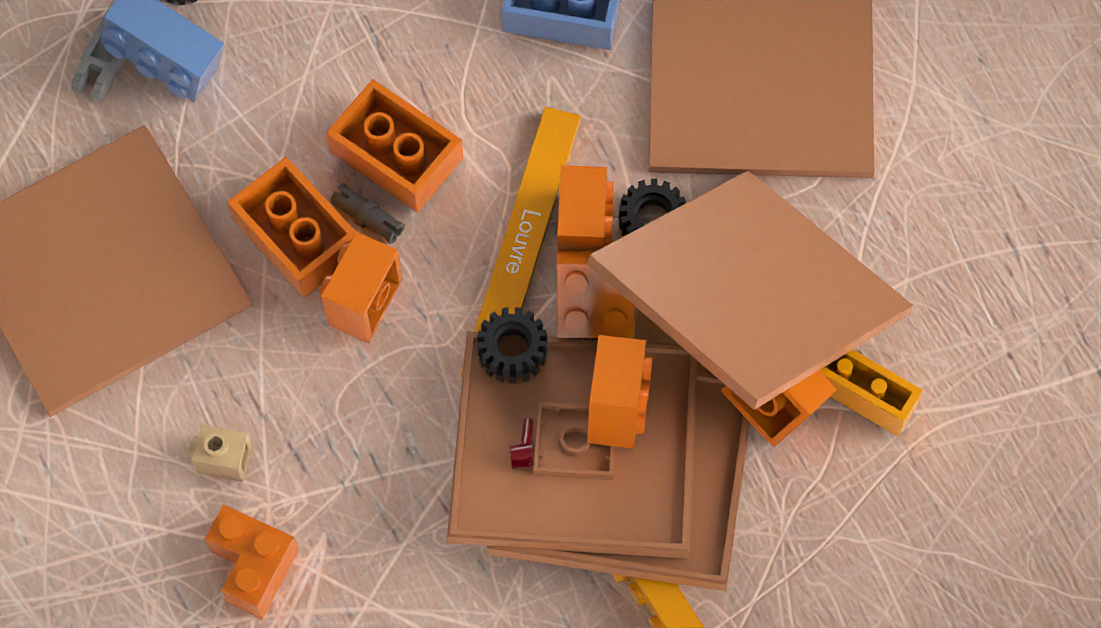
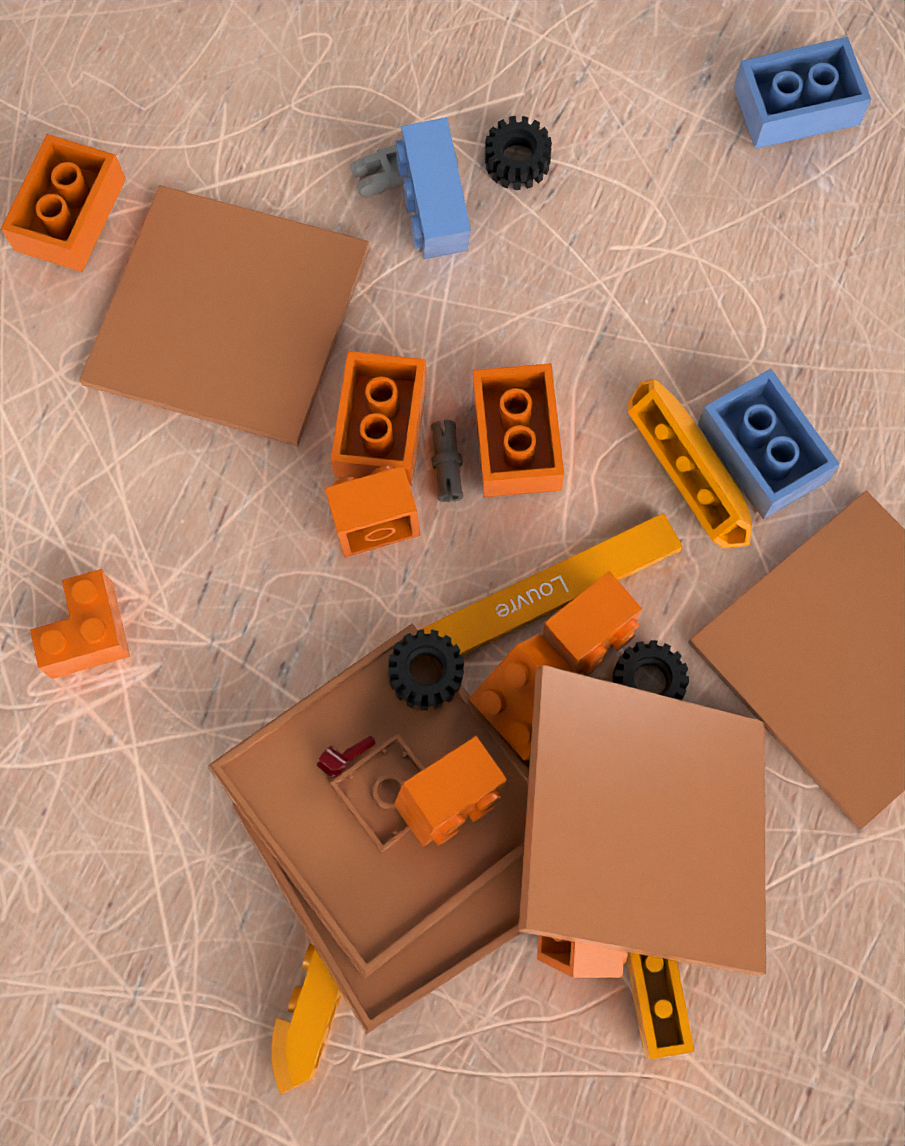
camera: 50 degrees right, 5 degrees up
(220, 452) = (152, 529): tan brick -> none
(528, 57) = (691, 464): none -> light orange brick

